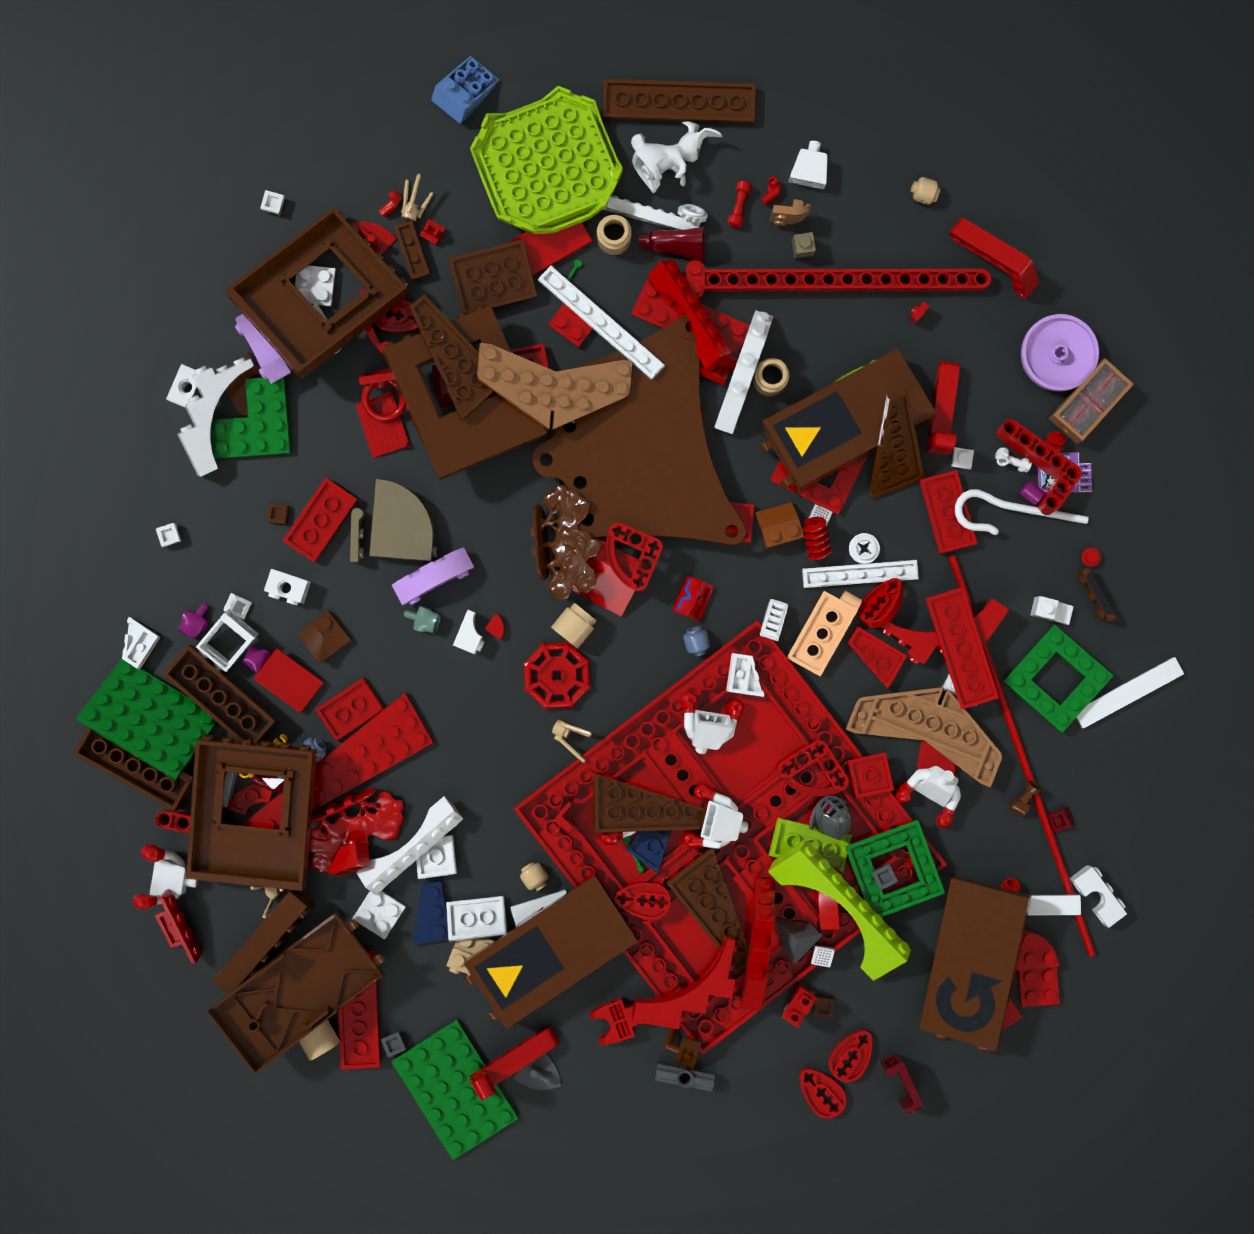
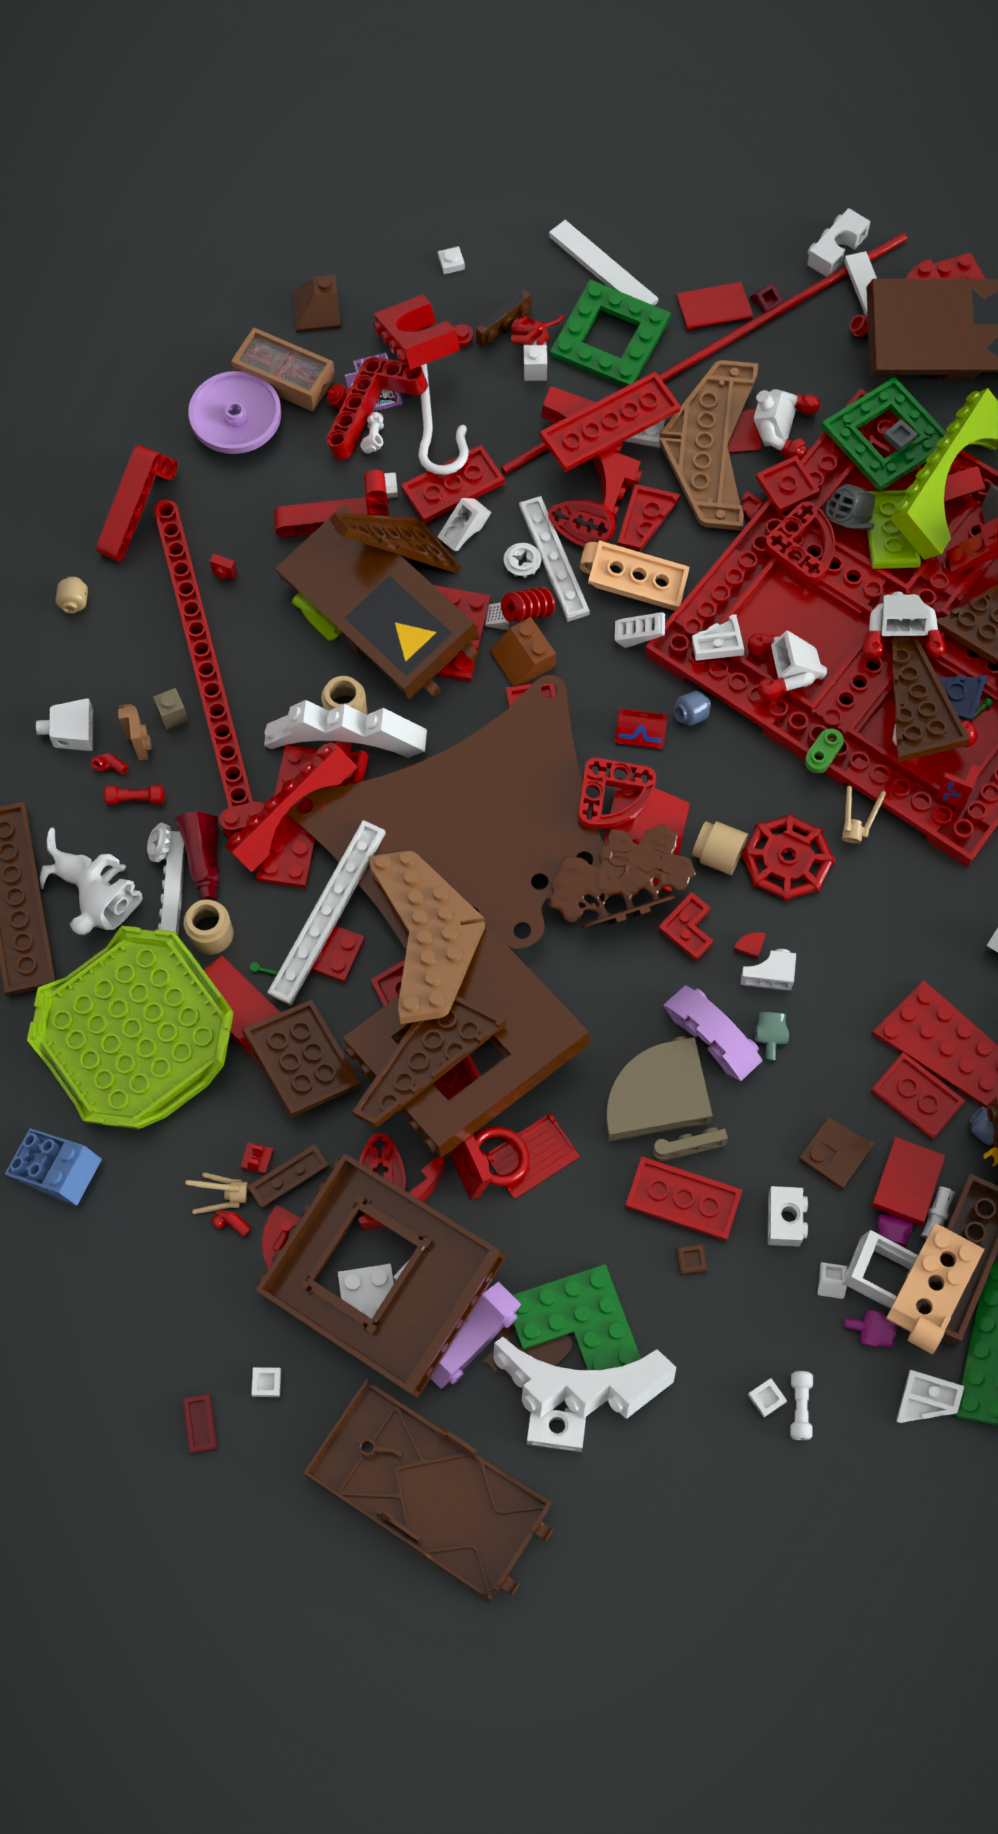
camera: 105 degrees left, 20 degrees down
(142, 551) = (801, 1382): none -> white piece
(168, 293) = (429, 1491): none -> reddish brown piece
(174, 654) = (929, 1328): none -> light nougat hinge
(259, 153) = (199, 1423): none -> dark red tile
(260, 693) = (939, 1210): none -> white pin
(522, 579) = (682, 929): none -> red plate
(630, 727) = (825, 749): none -> bright green plate
(865, 743) = (751, 505): none -> red tile
(908, 510) = (464, 521): none -> white arch
(1021, 804) = (765, 336): reddish brown leg -> none
(1032, 492) = (405, 406): magenta beam -> none
(1065, 773) = (714, 305): none -> red piece
(1073, 509) = (419, 347): none -> red arch
(1081, 612) = (530, 330): none -> red piece
(1150, 445) = (317, 304): none -> reddish brown slope
(1169, 568) = (451, 260): none -> white plate

